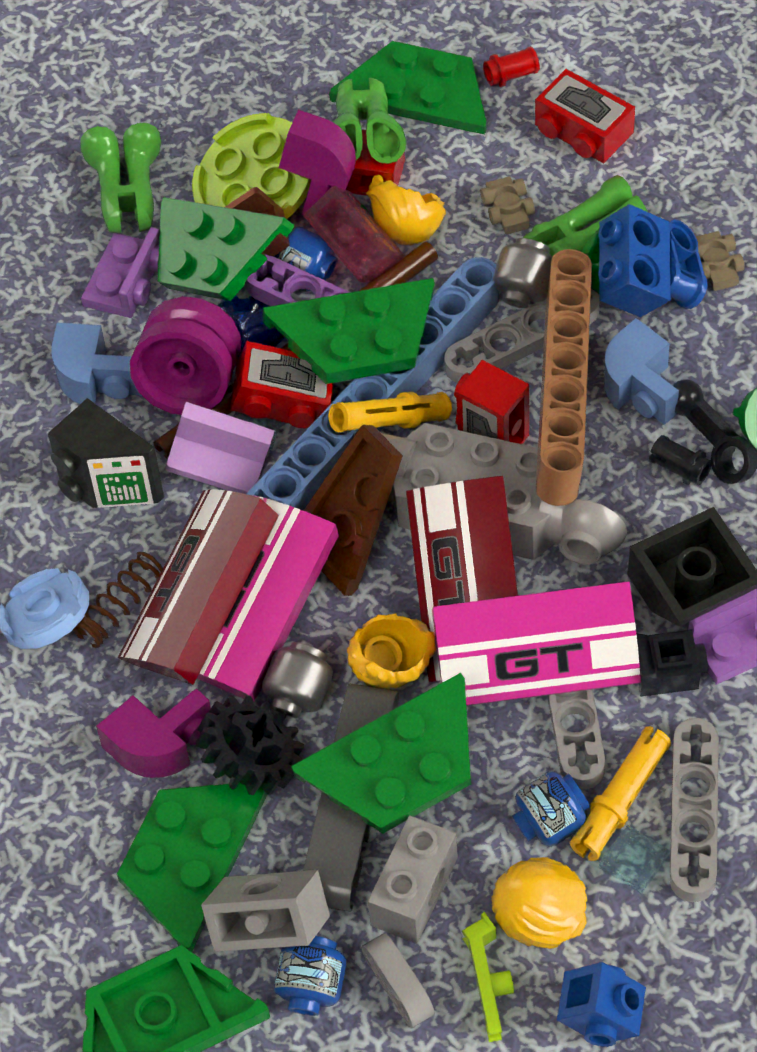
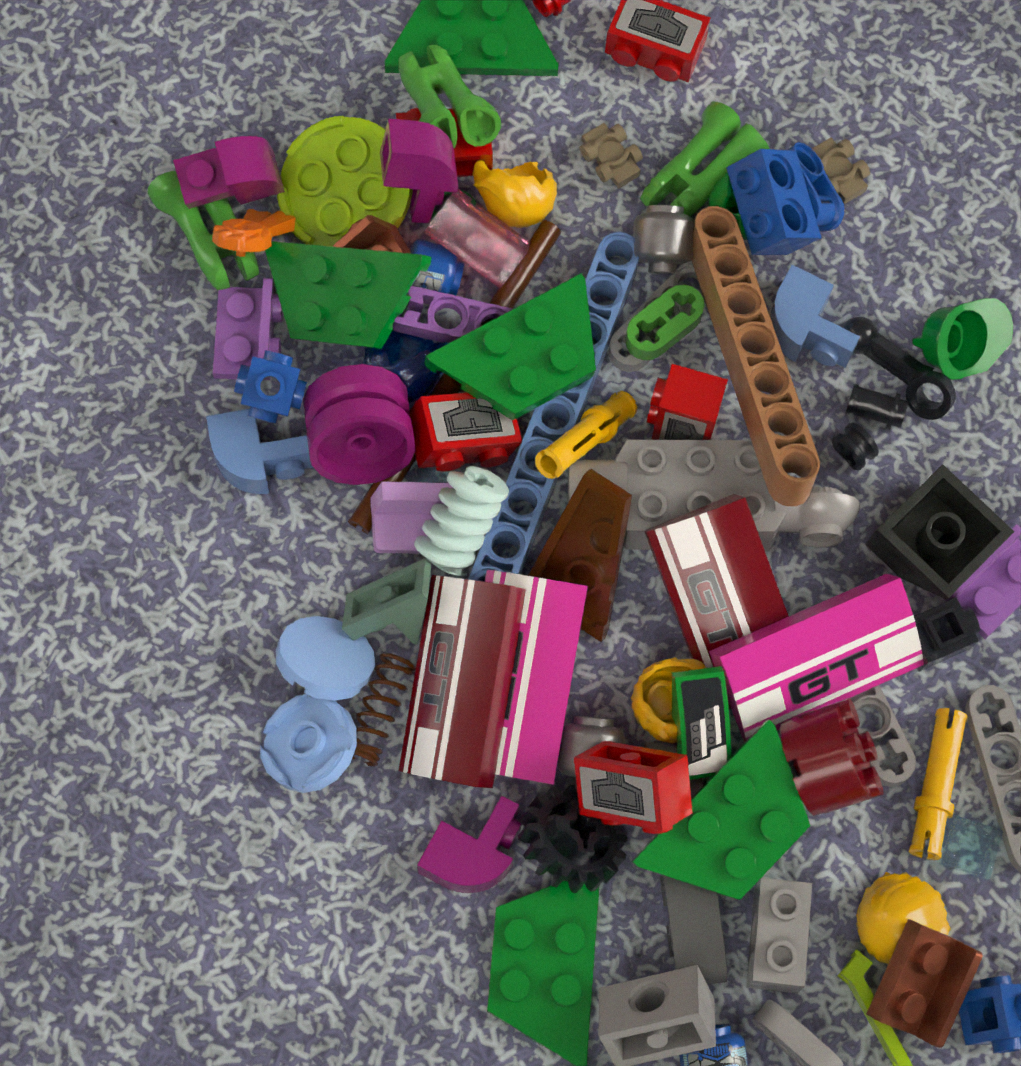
camera: 25 degrees left, 15 degrees up
(85, 541) = (324, 658): none -> light blue tile
(103, 460) = (314, 564): pearl dark grey slope -> none
(119, 320) = (265, 406): none -> blue brick
(153, 186) = (252, 232): none -> orange piece
(158, 131) = (235, 168): none -> magenta brick
(162, 509) = (392, 599): none -> sand green slope
(247, 448) = (461, 519): none -> light aqua piece
(312, 699) = (633, 786): none -> red brick
(398, 660) = (702, 719): none -> slope
(500, 341) = (658, 315): none -> bright green beam
(514, 730) = (831, 758): none -> dark red brick
(532, 948) = (925, 983): none -> copper bracket
(550, 808) = (882, 823): head -> none
(646, 487) = (855, 446): none -> black bush

